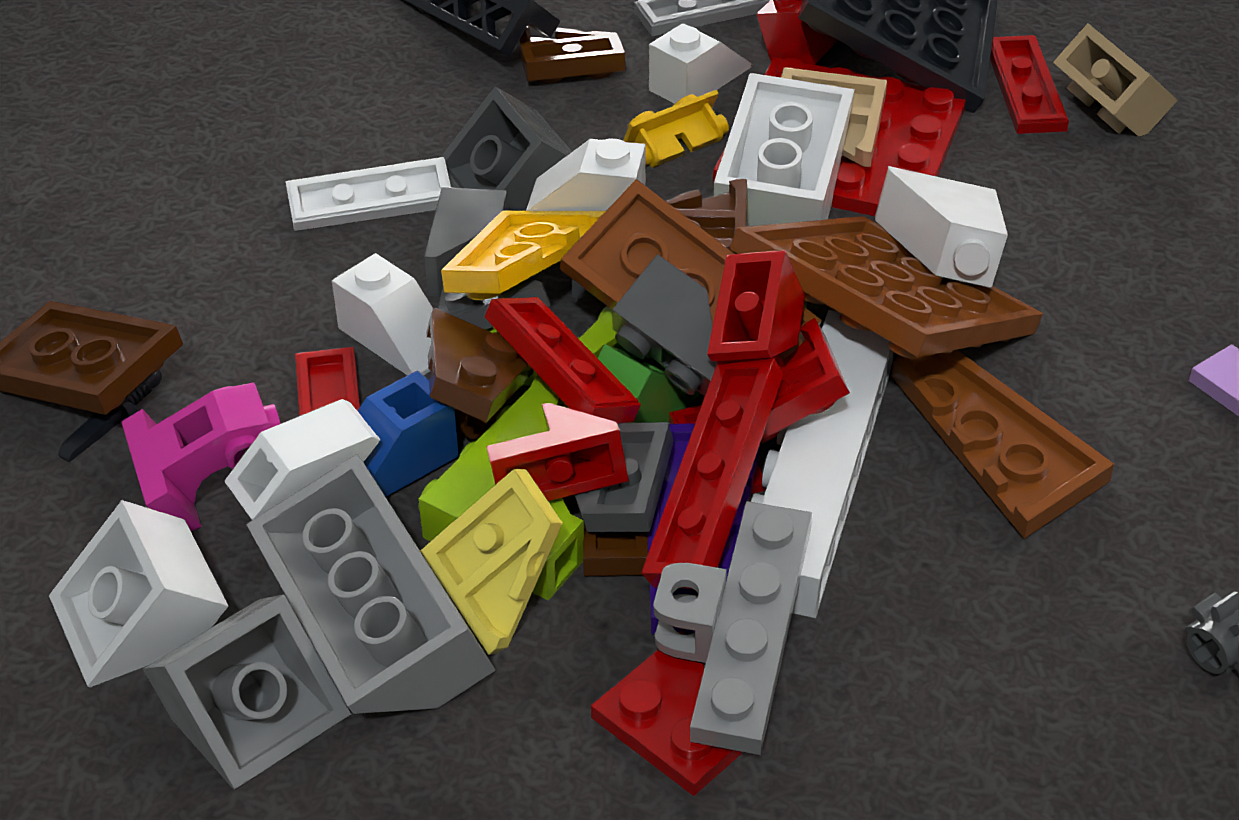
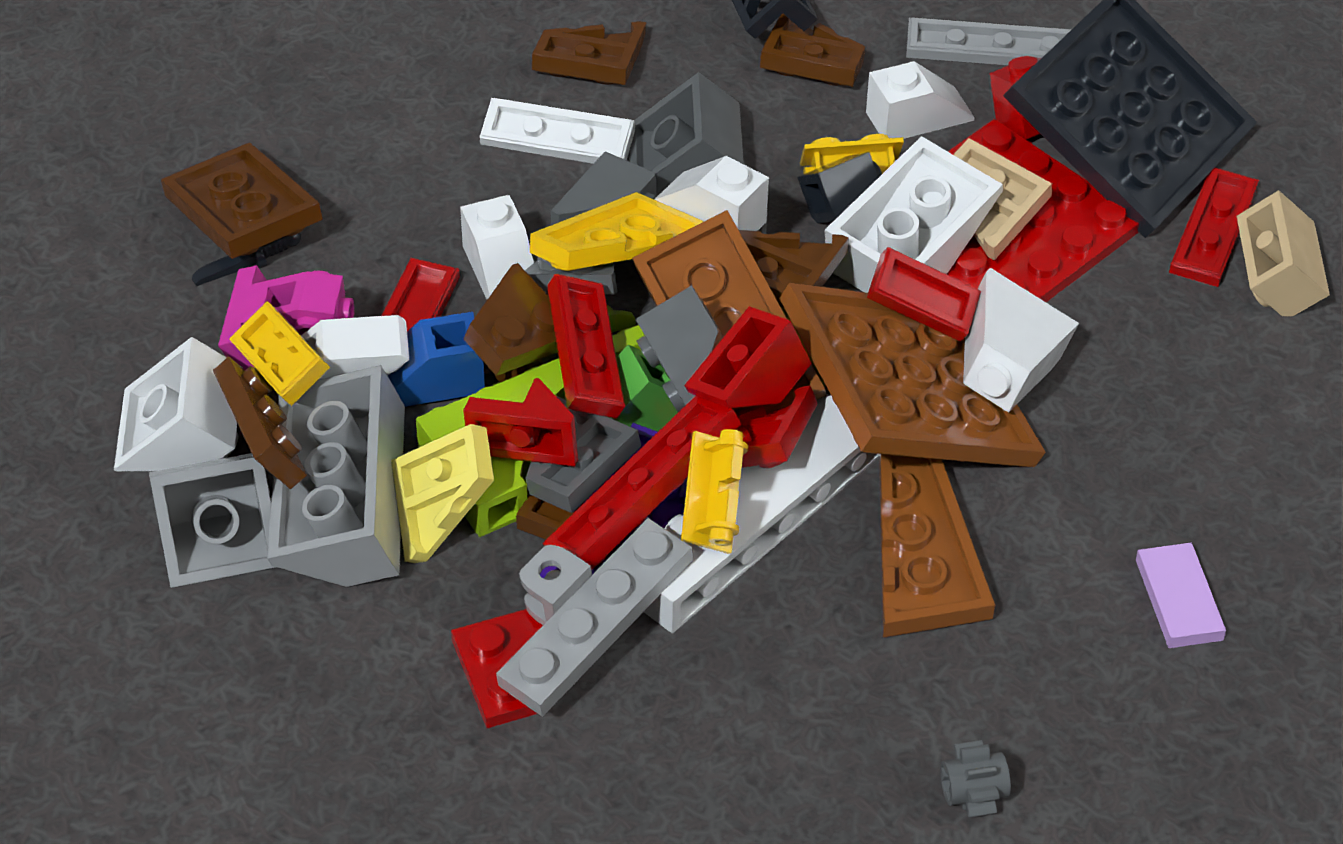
camera: 25 degrees right, 5 degrees up
(232, 483) = (279, 353): none -> yellow plate
(259, 558) = (261, 421): none -> reddish brown plate
(352, 119) = (589, 53): none -> reddish brown wing
(686, 151) = (837, 185): none -> black brick
(812, 469) = (713, 490): none -> yellow hinge
(848, 206) = (924, 294): none -> red tile

